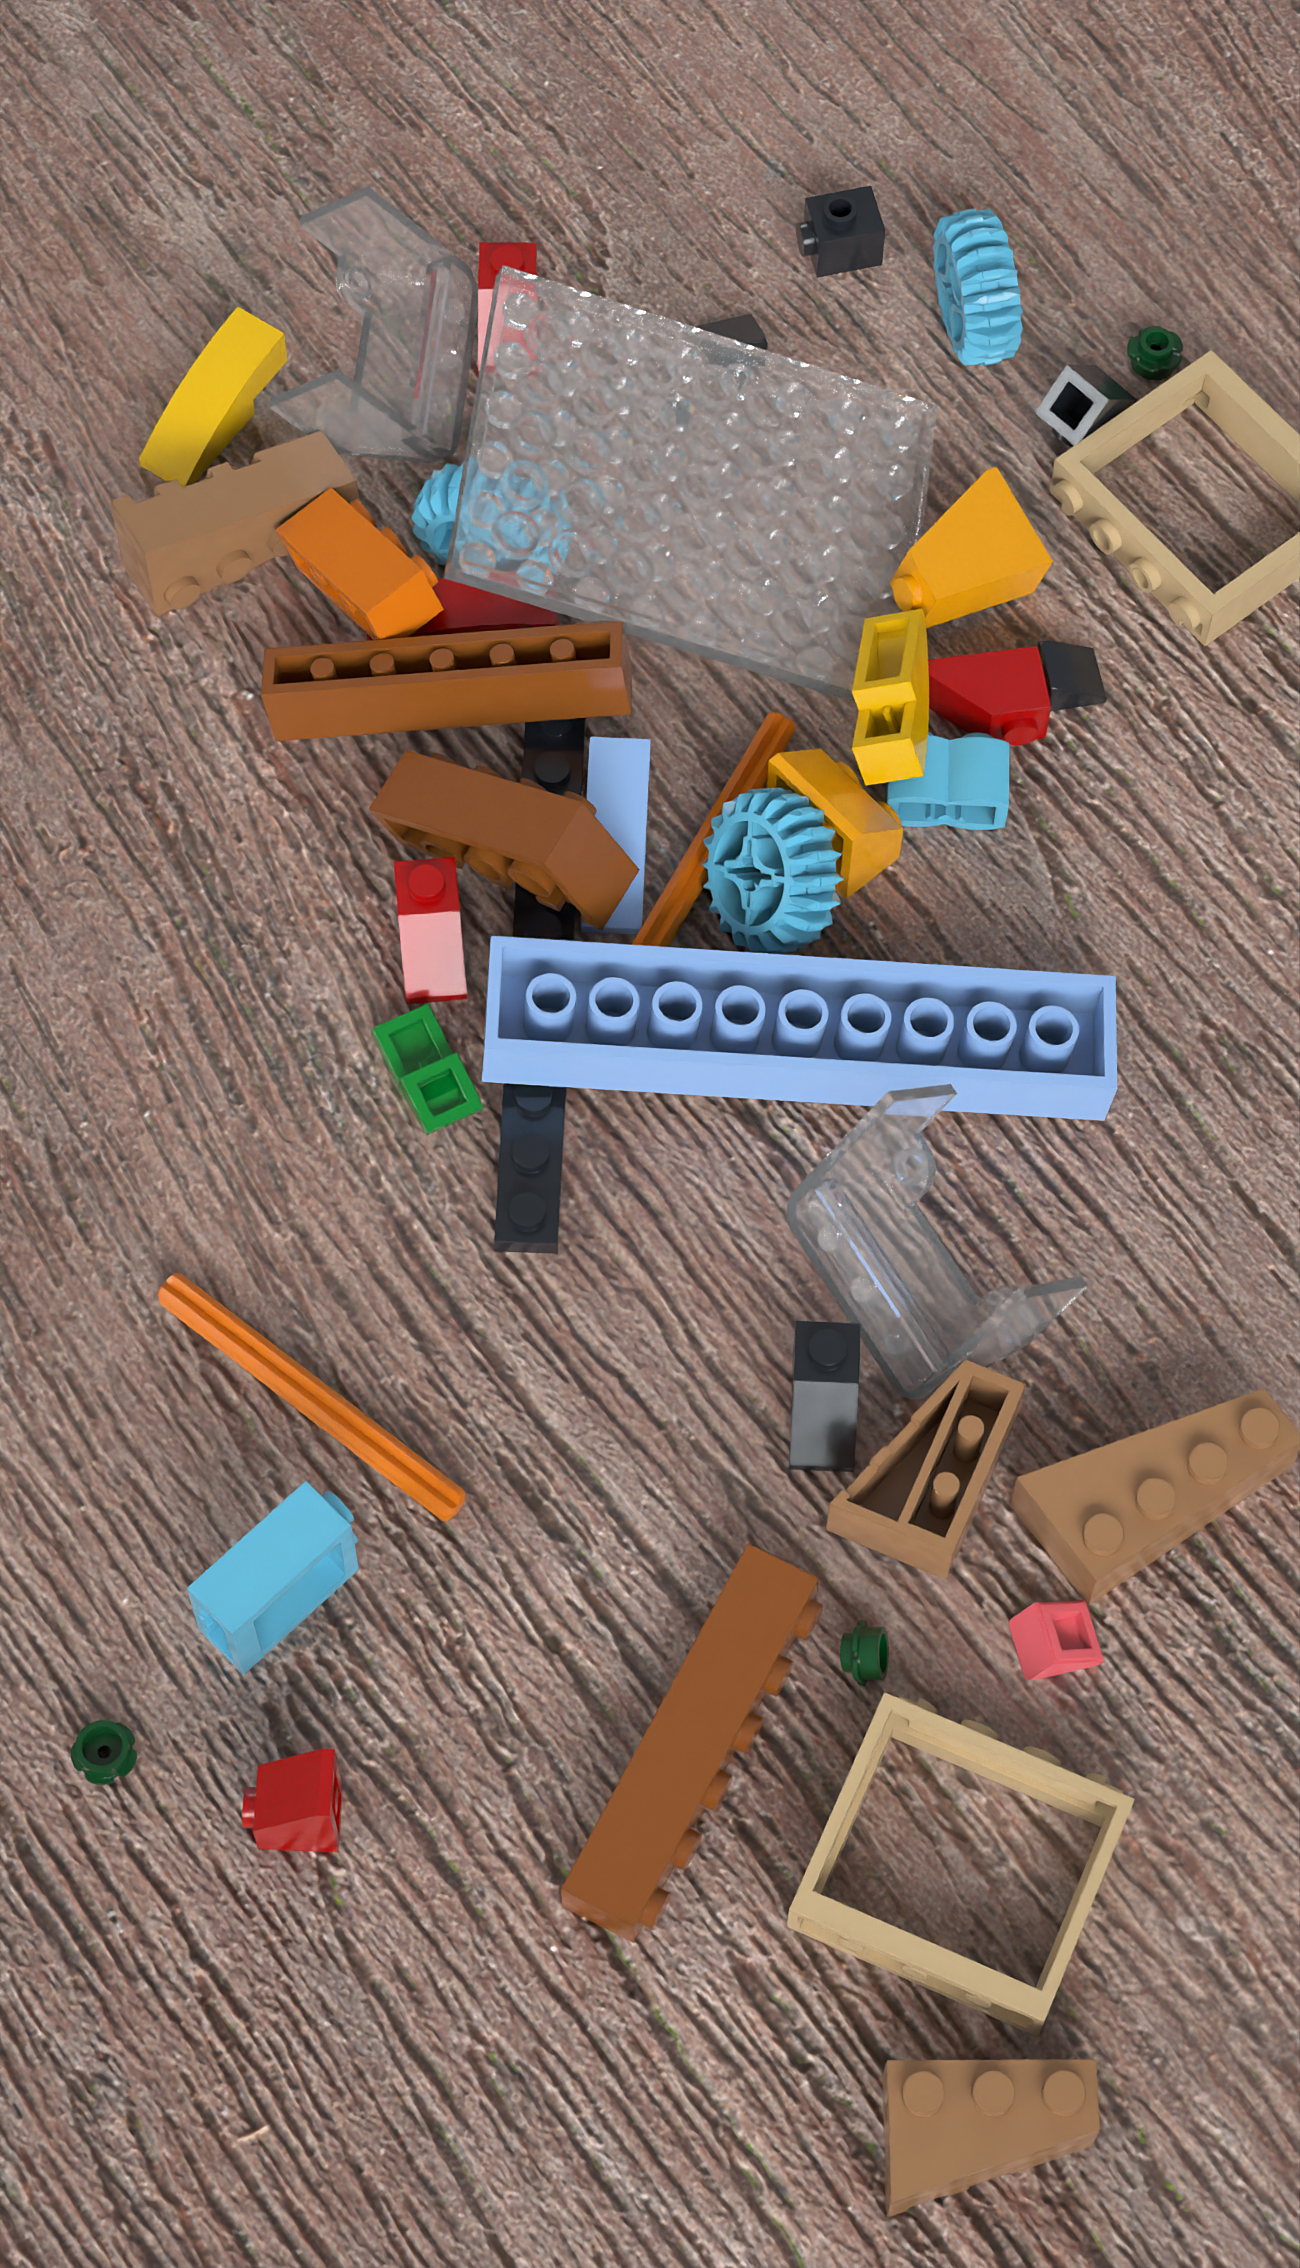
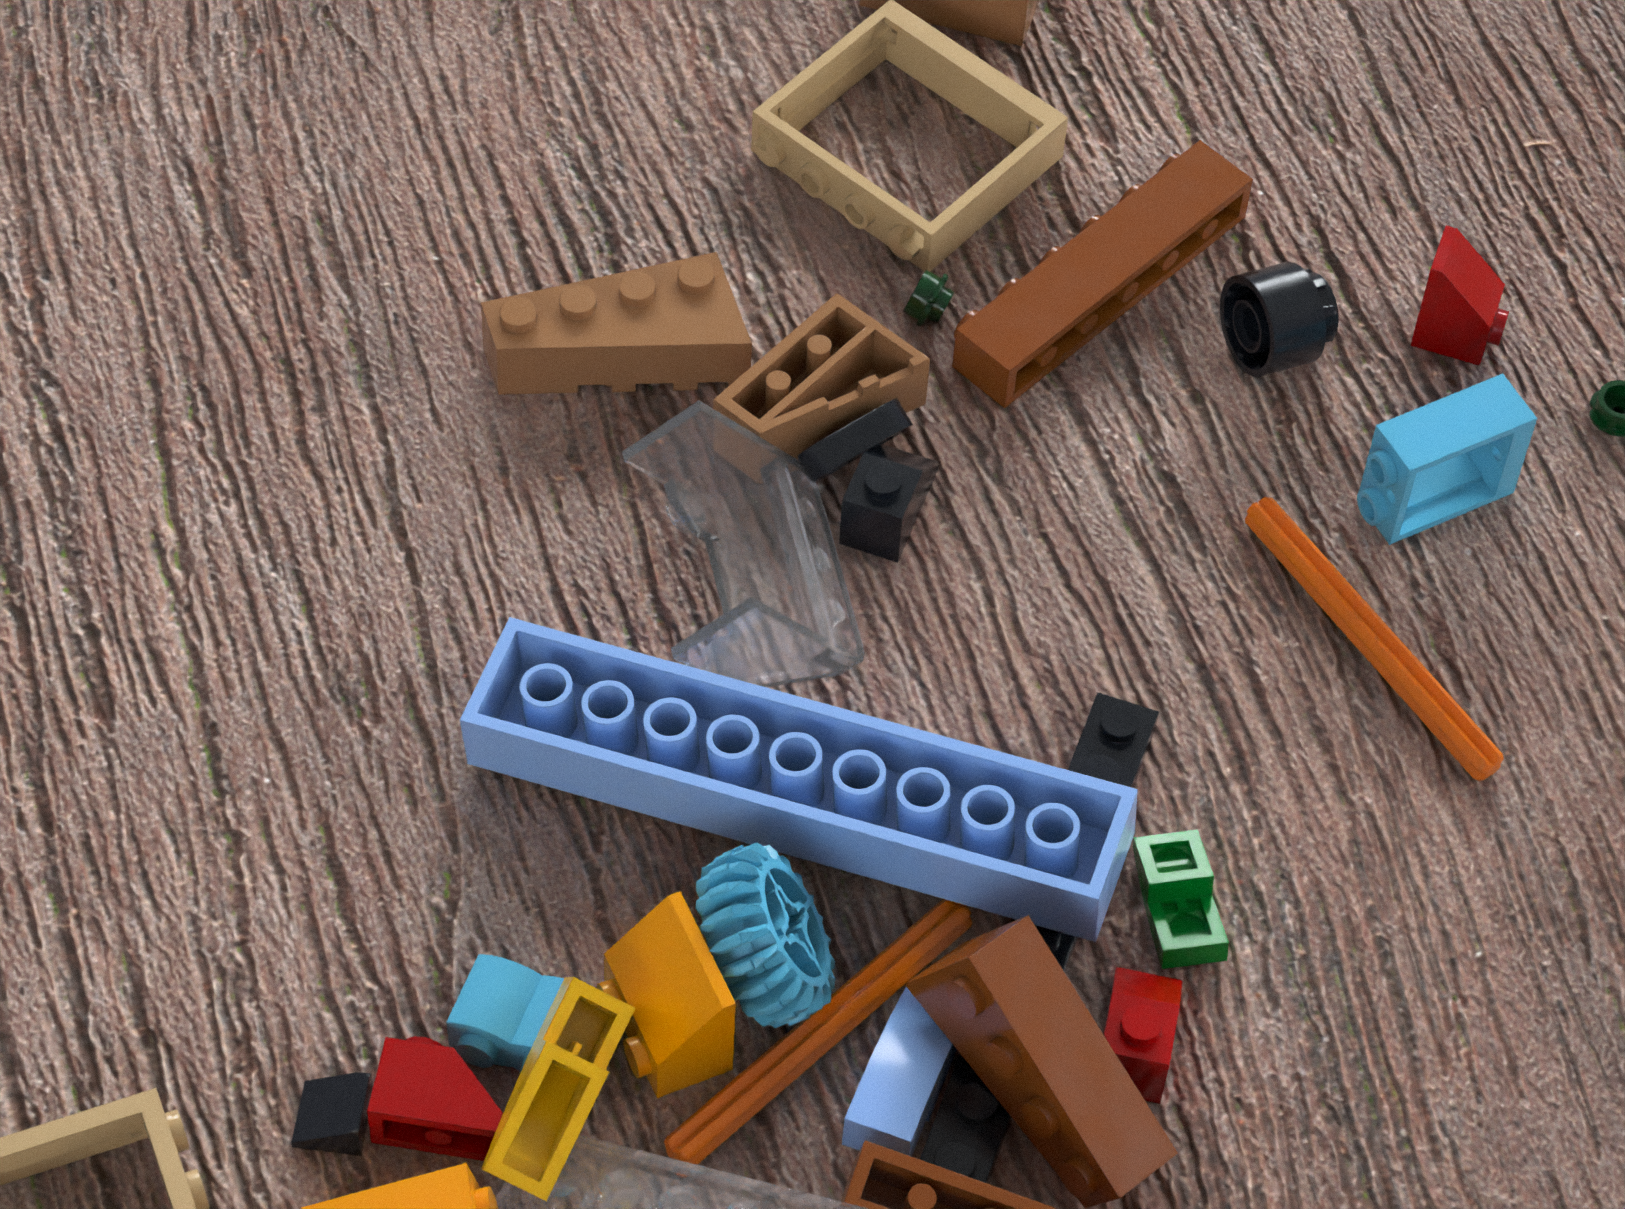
camera: 165 degrees left, 10 degrees down
(486, 1721) = (1277, 317): none -> black piece
(873, 1421) = (854, 439): none -> black beam
(1055, 1639) = (759, 271): coral slope -> none

